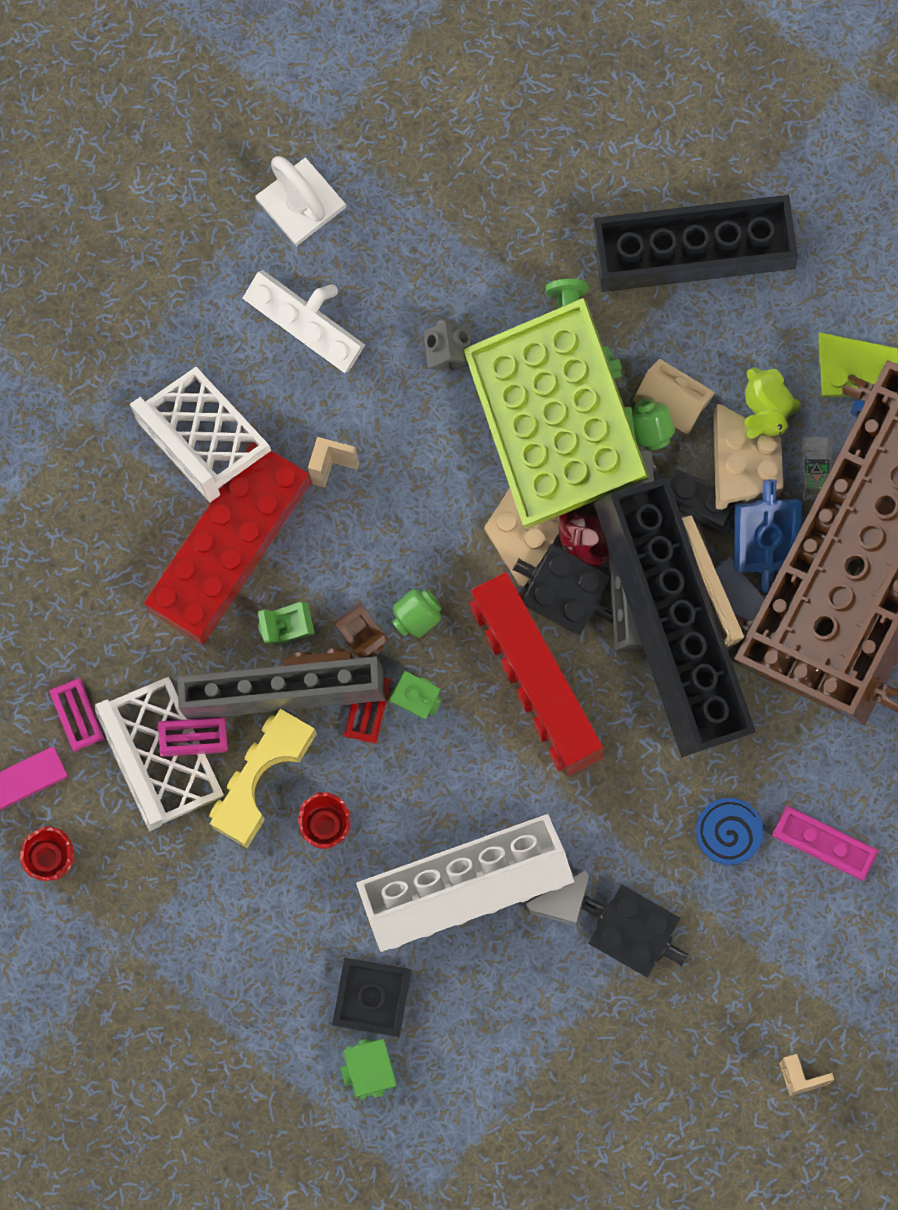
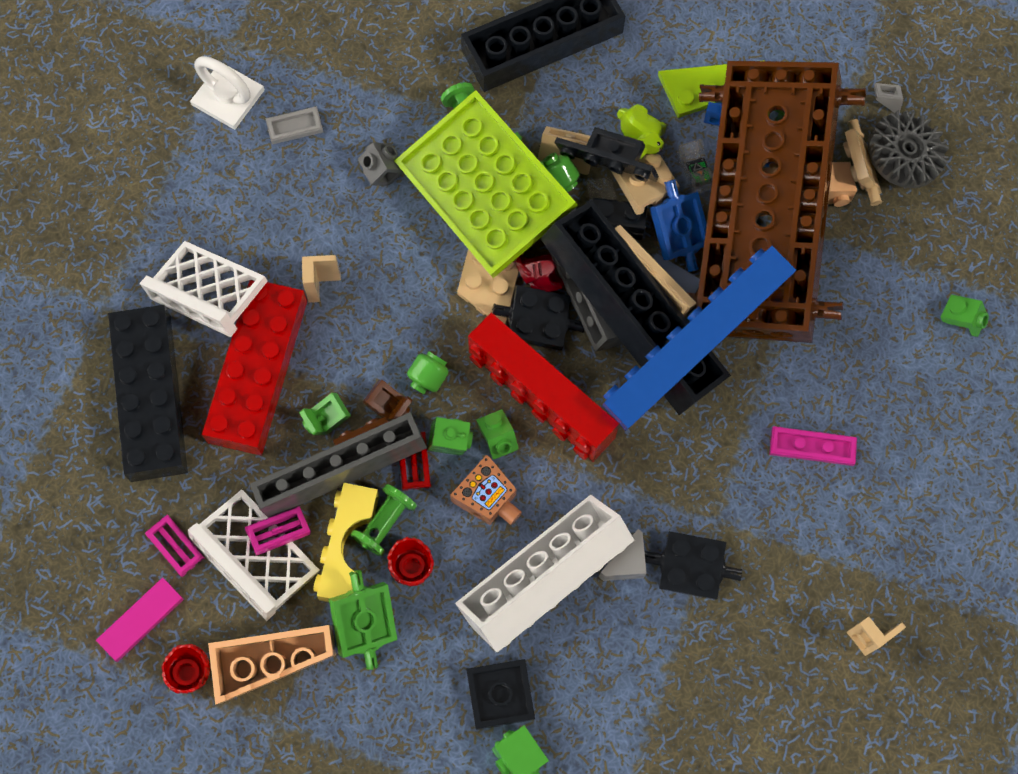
camera: 30 degrees left, 5 degrees down
(100, 533) = (147, 393): none -> black brick
(130, 872) = (256, 660): none -> light nougat wedge
(251, 866) = (363, 619): none -> bright green plate
(304, 319) = (260, 179): white plate -> none
(311, 764) = (384, 519): none -> bright green hose
(366, 263) = (294, 125): none -> light grey tile
(434, 773) = (487, 494): none -> nougat torso
(471, 709) = (498, 434): none -> bright green bracket
(718, 420) = (613, 151): none -> black bracket
(724, 681) = (698, 337): none -> blue brick
(729, 831) = (736, 462): blue tile -> none

